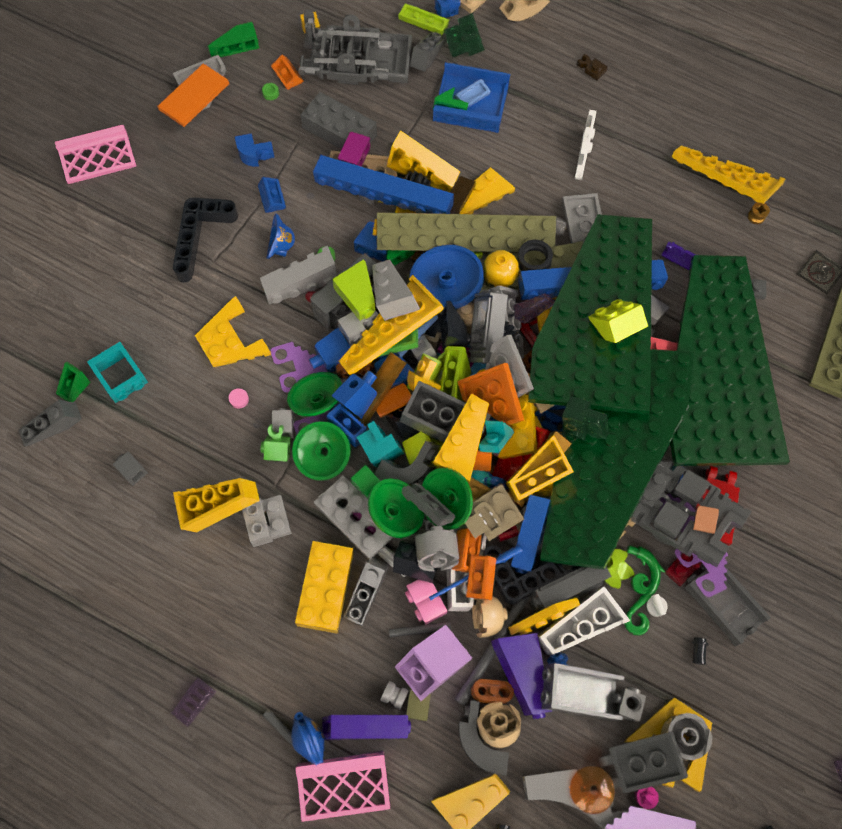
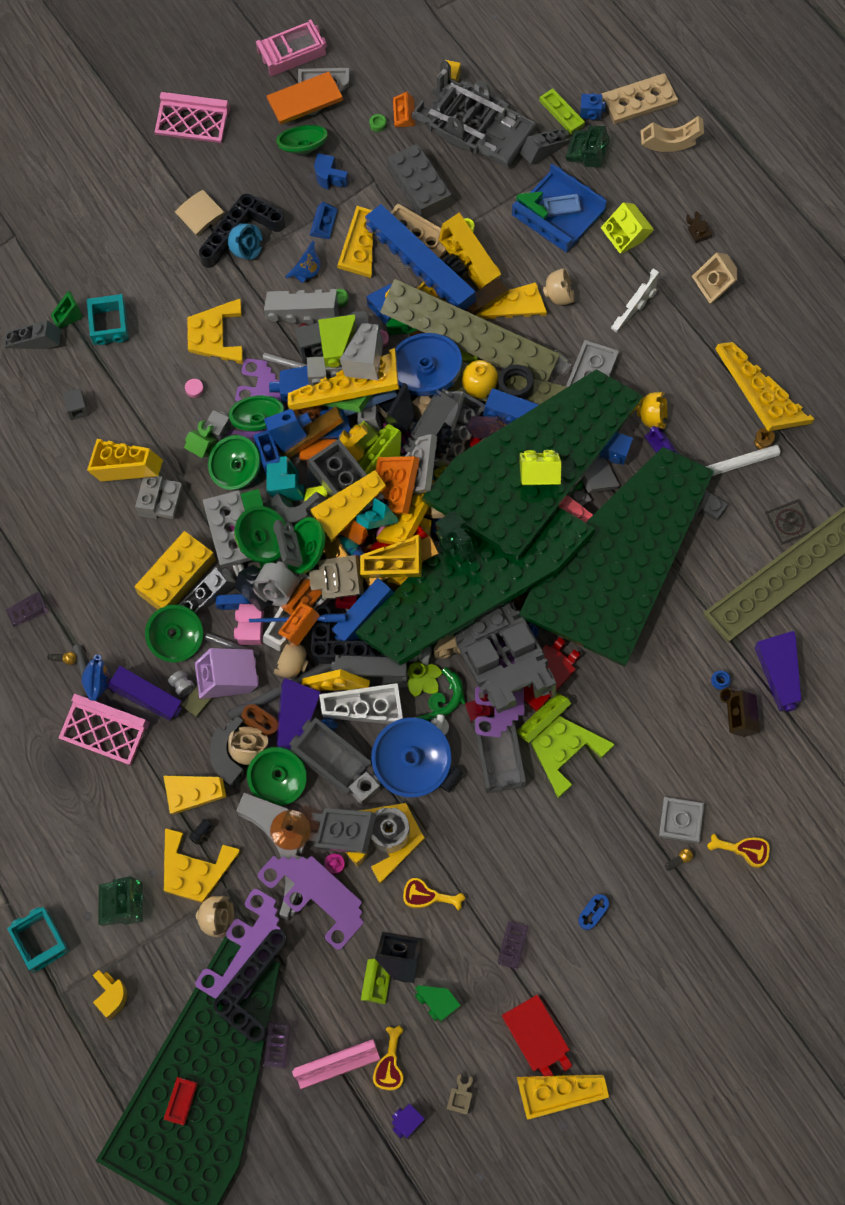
camera: 35 degrees right, 0 degrees up
(152, 235) = (200, 212): none -> tan slope
(155, 58) = (292, 48): none -> bright pink door
(211, 241) = (245, 241): none -> dark azure cylinder
(212, 131) = (302, 139): none -> green dish
(236, 40) = (374, 60): green slope -> none
(265, 730) = (68, 658): none -> piece
(309, 335) = (282, 361): none -> light grey bar
(316, 201) = (357, 250): none -> yellow wing
(355, 149) = (416, 213): magenta panel -> none
(371, 649) = (187, 636): none -> green dish
(395, 587) = (230, 602): none -> blue beam
(515, 162) = (559, 288): none -> tan cylinder
(537, 90) = (627, 227): none -> neon yellow slope
(550, 749) = (274, 788): none -> green dish
(635, 99) = (716, 276): none -> tan slope
(655, 651) = (411, 757): none -> blue dish
(661, 229) = (653, 410): none -> yellow cylinder
(705, 519) = (509, 668): nougat slope -> none
(742, 549) = (543, 718): none -> lime plate
(744, 783) = (418, 895): none -> yellow piece
(750, 241) = (745, 459): none -> white axle
(769, 564) = (559, 744): none -> lime wing

